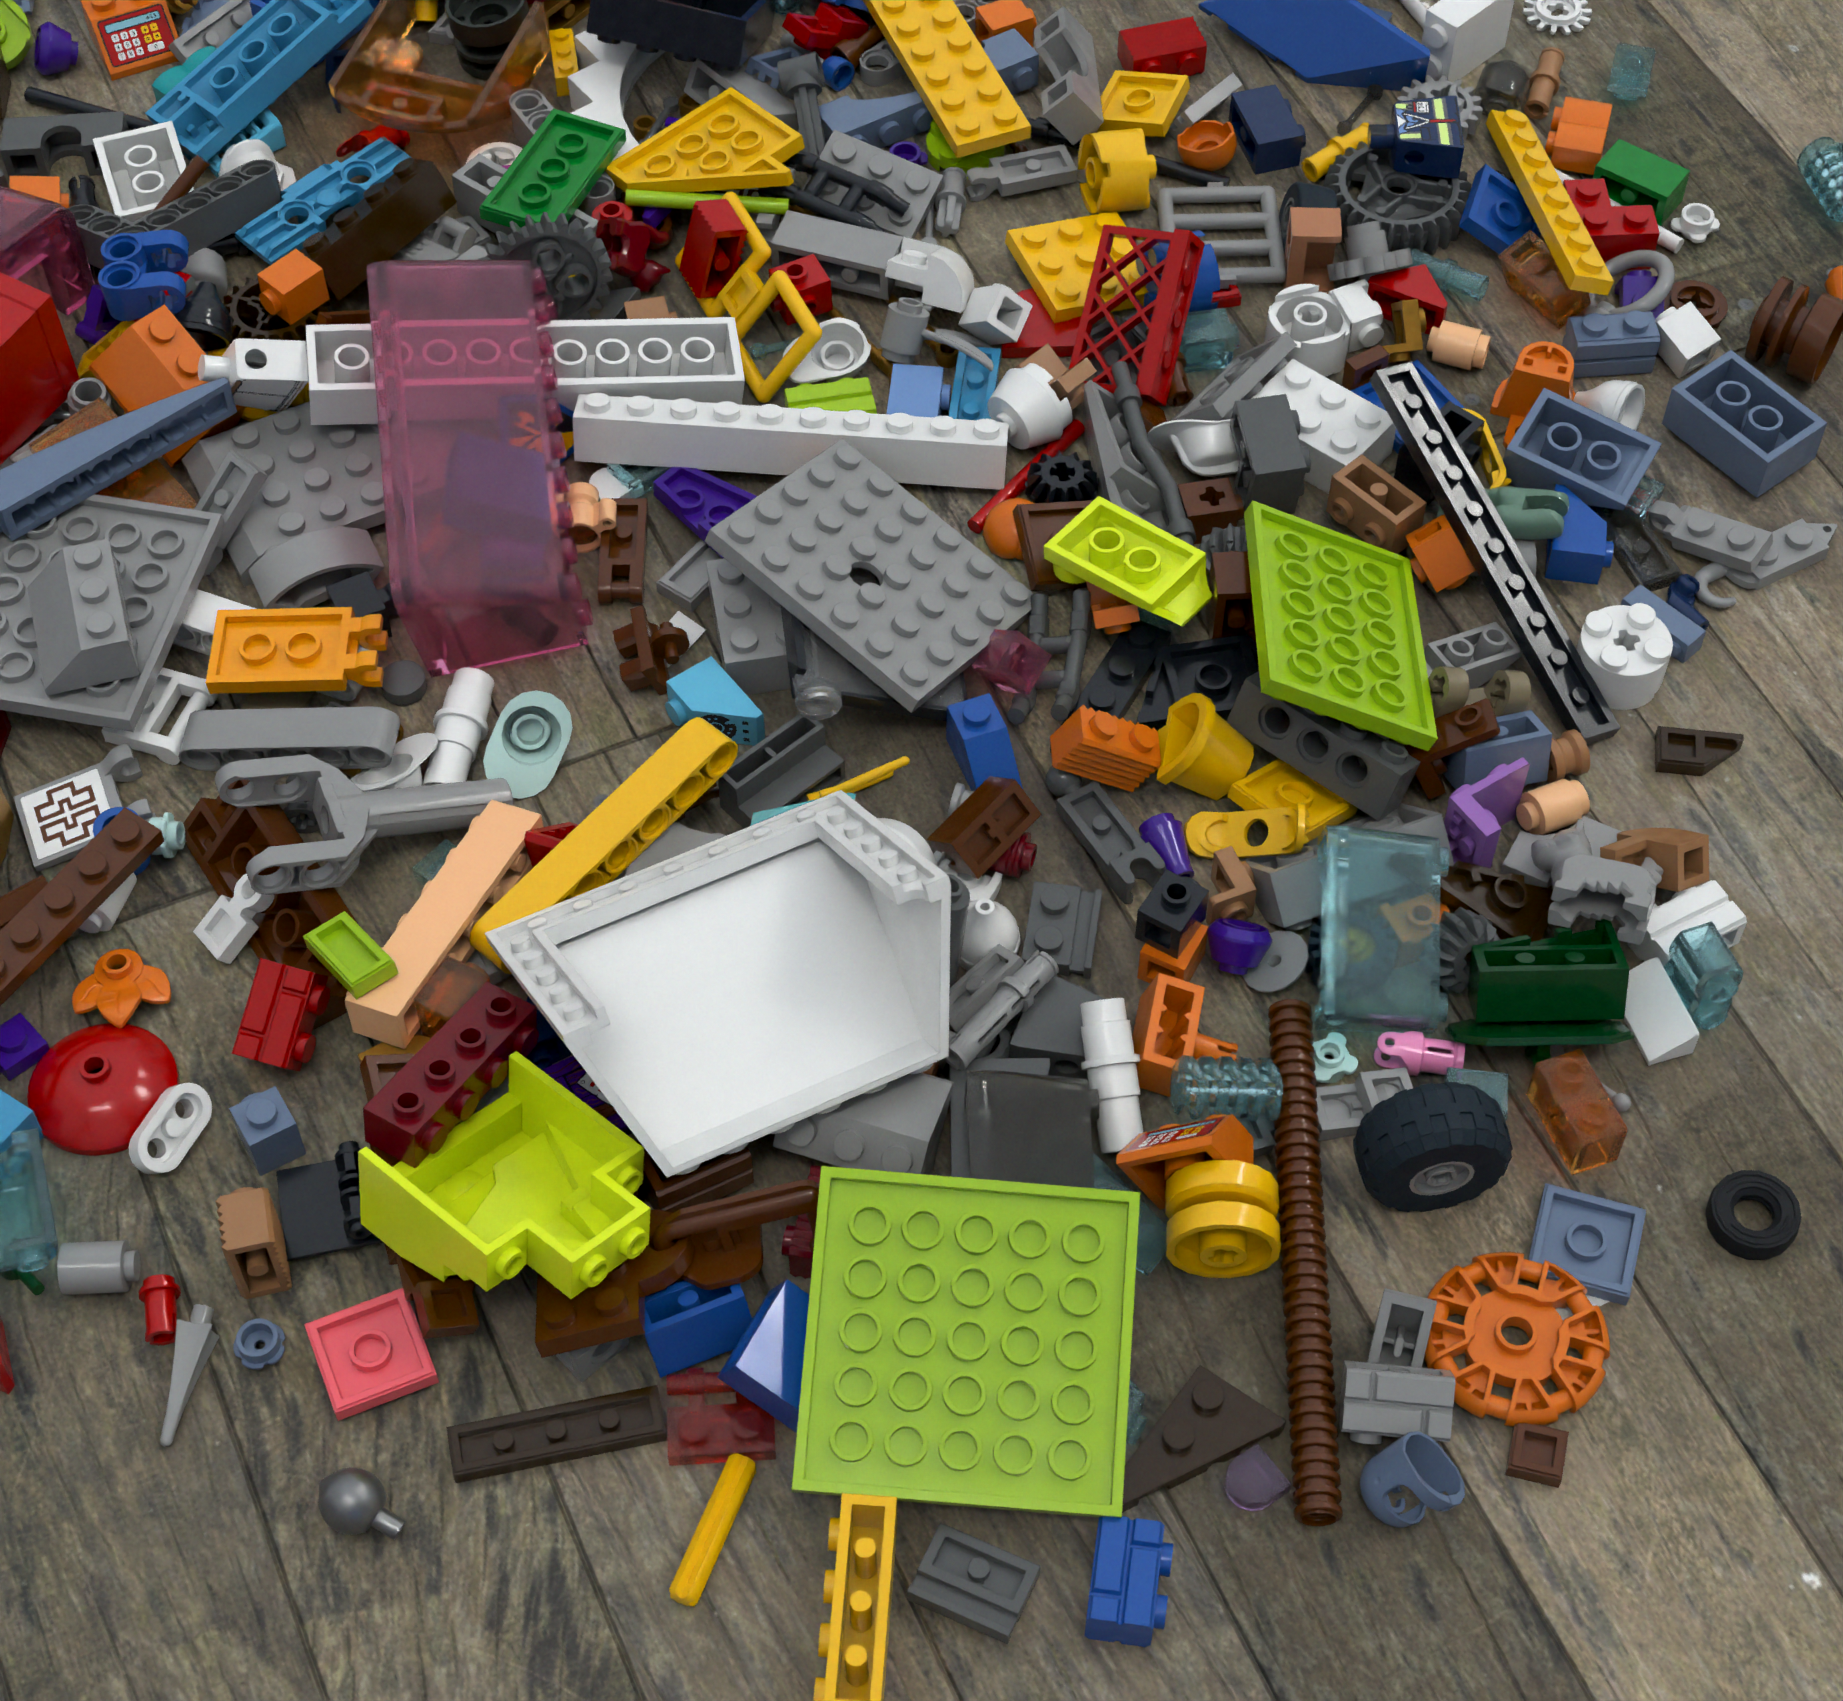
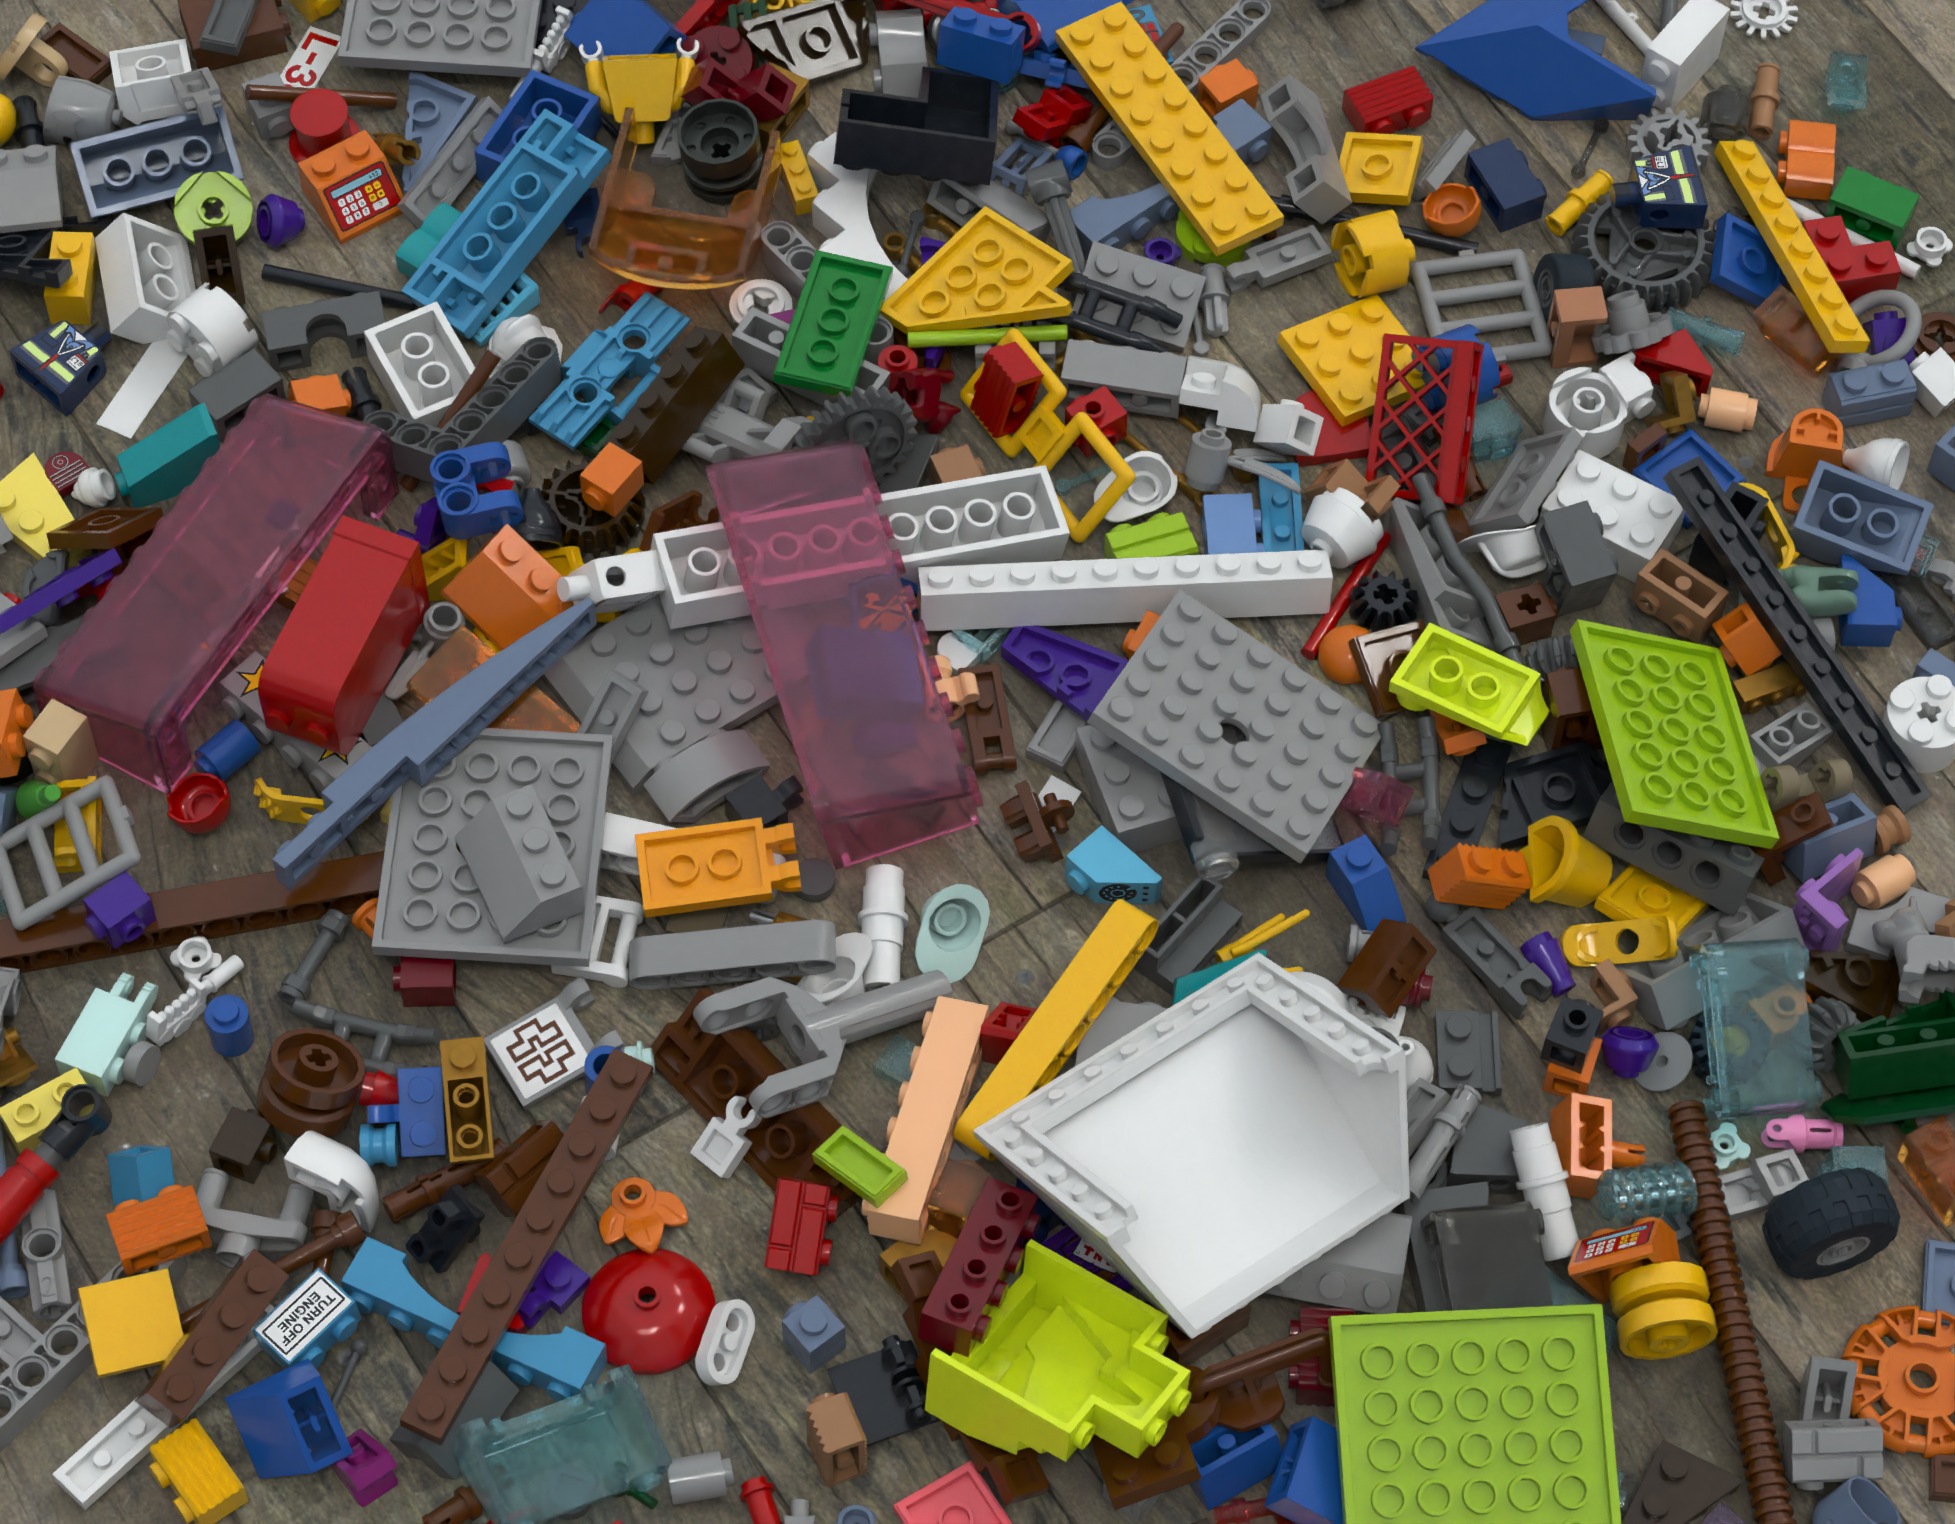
camera: 10 degrees left, 5 degrees up
(1456, 607) = (1767, 688): none -> pearl gold piece

